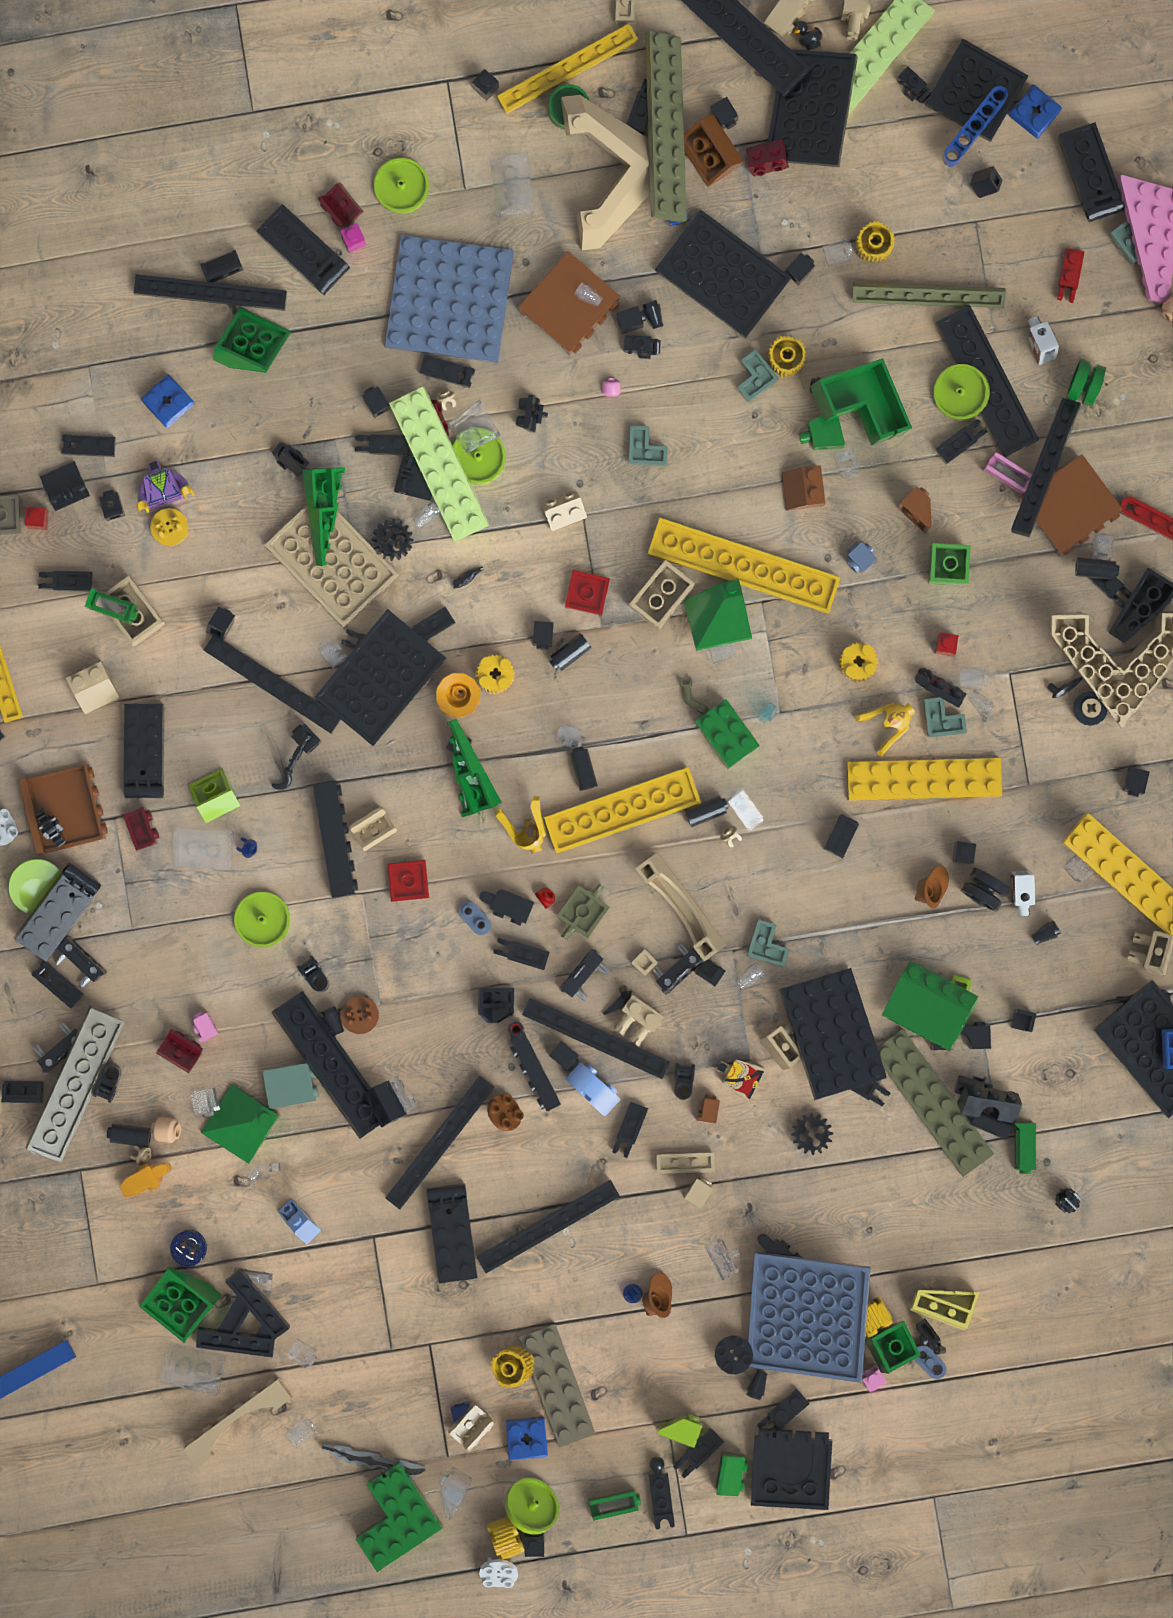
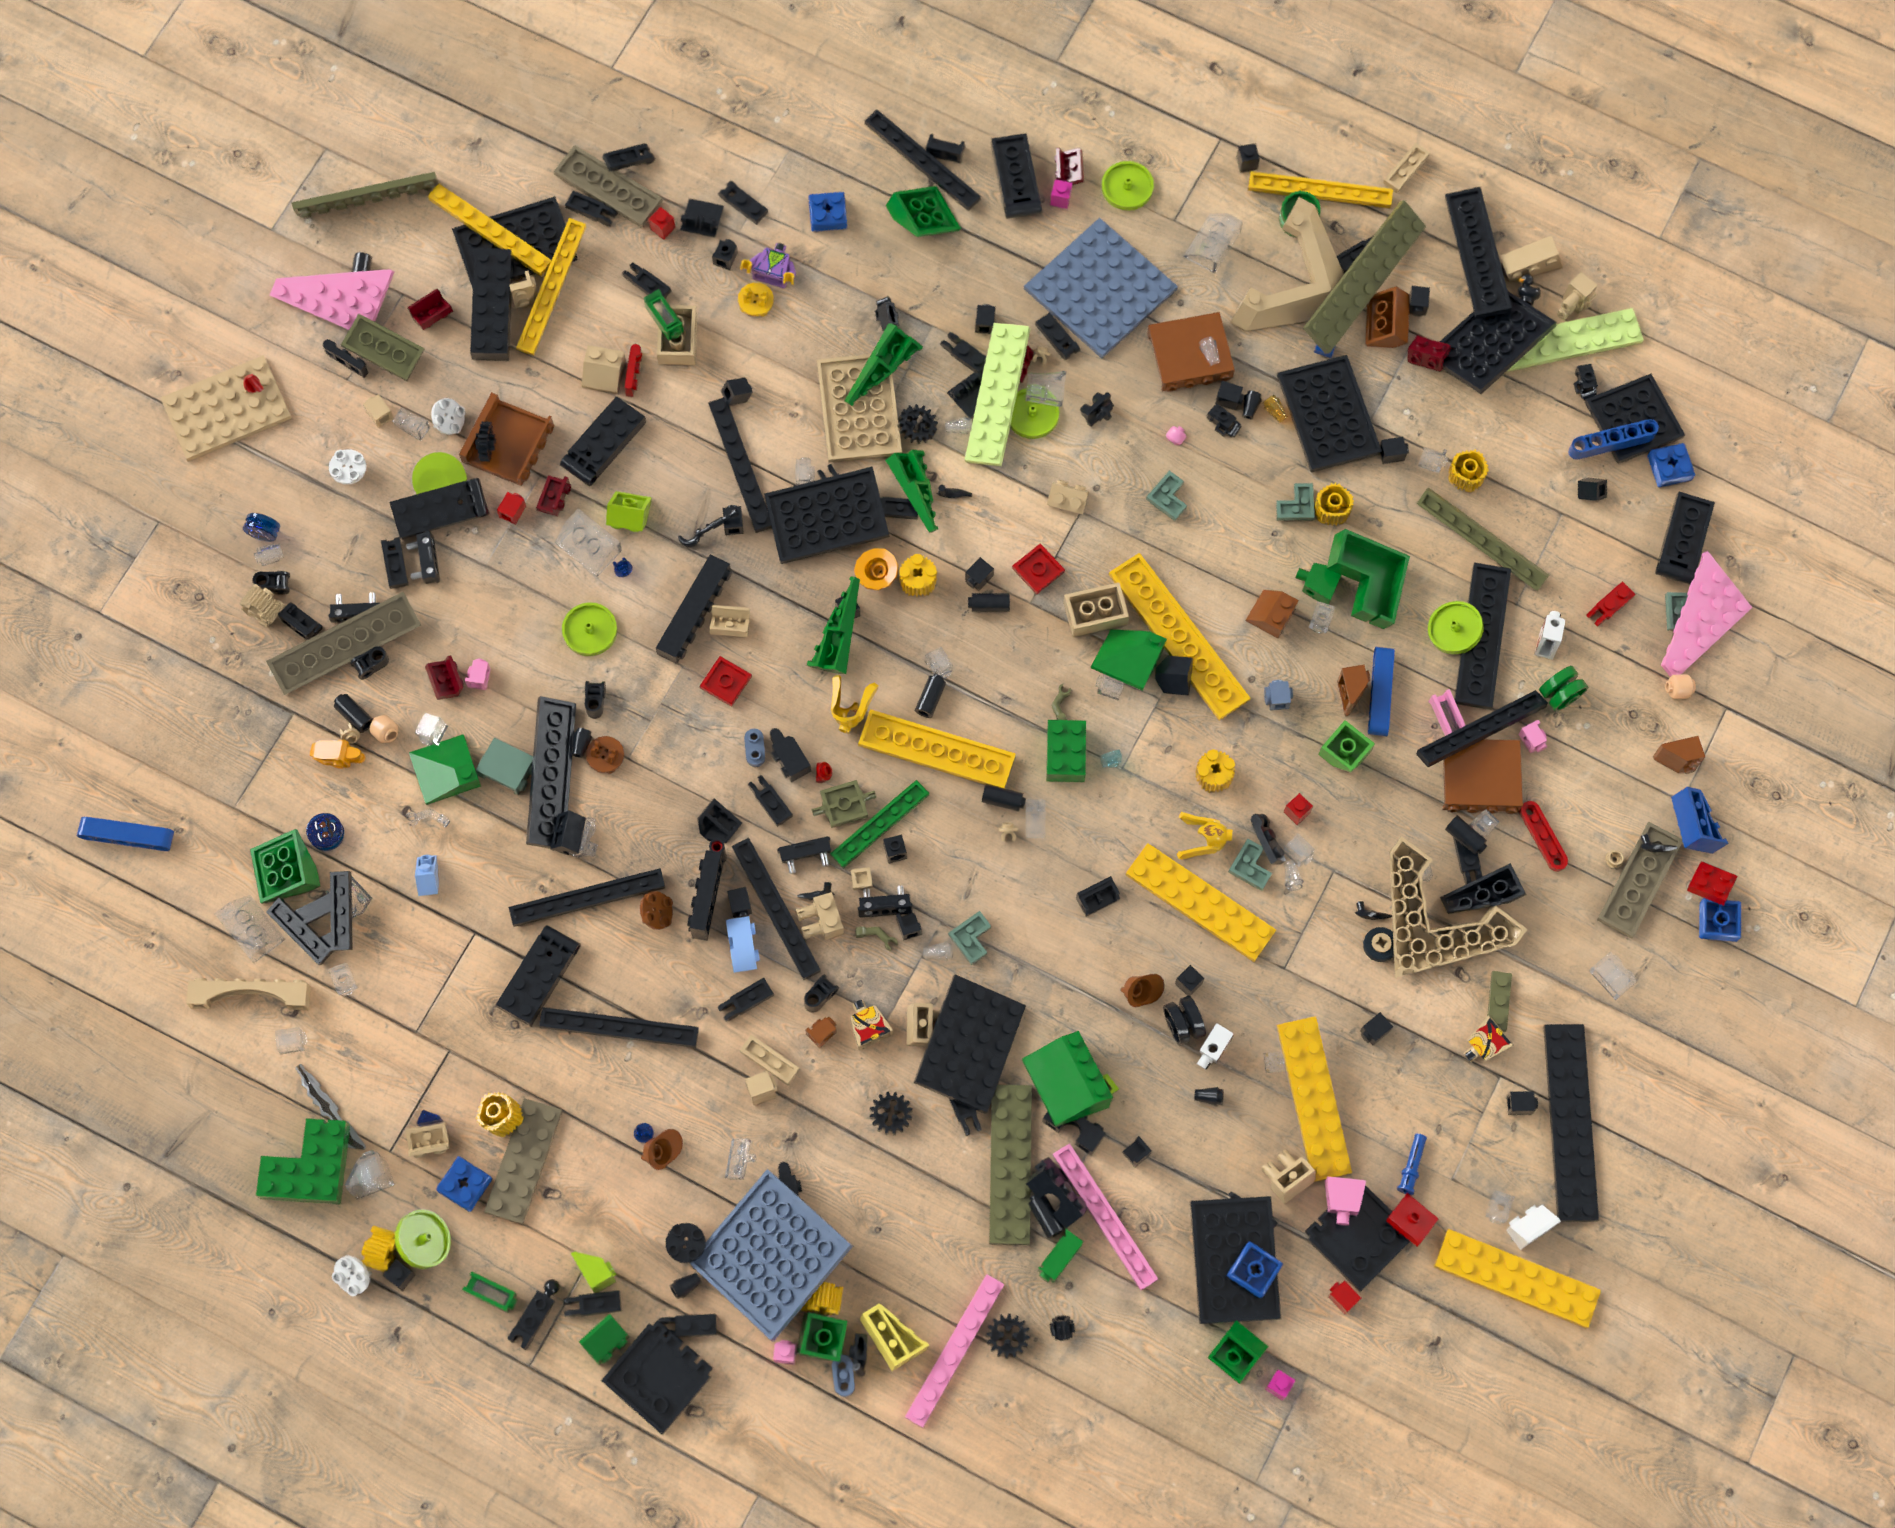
camera: 35 degrees right, 15 degrees down
(115, 865) = (511, 507): none -> red brick
(118, 667) = (633, 368): none -> red hinge
(422, 590) = (911, 475): none -> green wedge
(623, 906) = (879, 824): none -> green tile
(653, 919) = (894, 848): none -> black brick
(660, 877) = (926, 820): tan arch -> none
(676, 303) = (1275, 408): none -> clear yellow cone
(690, 995) = (863, 932): none -> olive arm
(766, 603) = (1174, 675): none -> black slope
(940, 492) = (1381, 691): none -> blue beam
(959, 442) = (1426, 665): black hinge -> none
(998, 1278) = (954, 1351): none -> bright pink plate
(1025, 1228) = (995, 1335): none -> black gear
(1035, 1089) = (1105, 1217): none -> bright pink plate
(1089, 440) = (1533, 737): none -> bright pink brick

